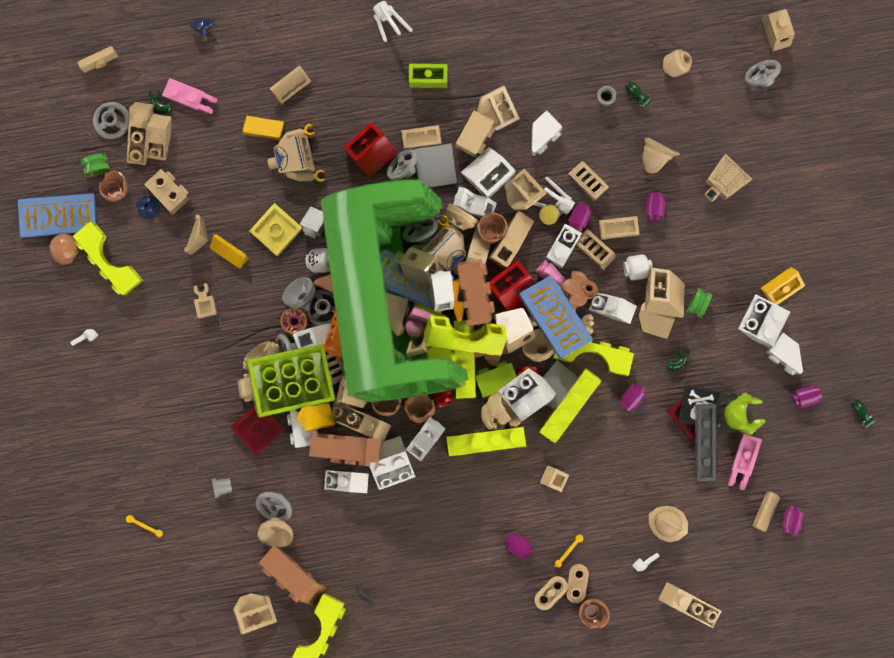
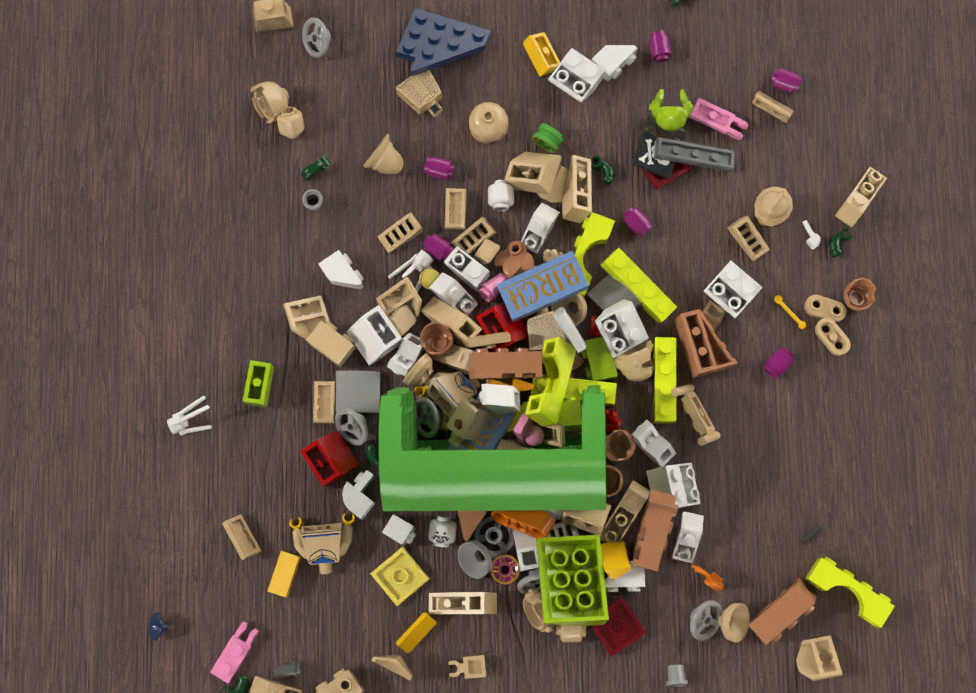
camera: 80 degrees left, 5 degrees down
(180, 145) = (288, 670): none -> dark grey pin
(259, 289) = (463, 603): none -> tan slope
(310, 509) = (712, 580): none -> orange plate
(338, 178) = (354, 497): none -> white brick
(460, 476) = (698, 414): none -> tan plate
(495, 273) = (488, 340): none -> tan plate
(506, 195) = (402, 319): none -> tan slope
(516, 346) = (569, 329): none -> white slope
(523, 471) = (701, 345): none -> nougat wedge
(537, 238) = (453, 294): none -> white slope
(579, 493) = (732, 289): none -> white slope
(582, 262) = (487, 251): none -> tan slope
(639, 585) = (834, 245): none -> dark green arm
(649, 498) = (738, 235): none -> tan slope
(654, 337) = (578, 190): none -> tan slope
(695, 41) = (269, 100): none -> tan cylinder
(707, 246) = (488, 122): none -> tan cylinder
(778, 186) = (438, 40): none -> dark blue wing

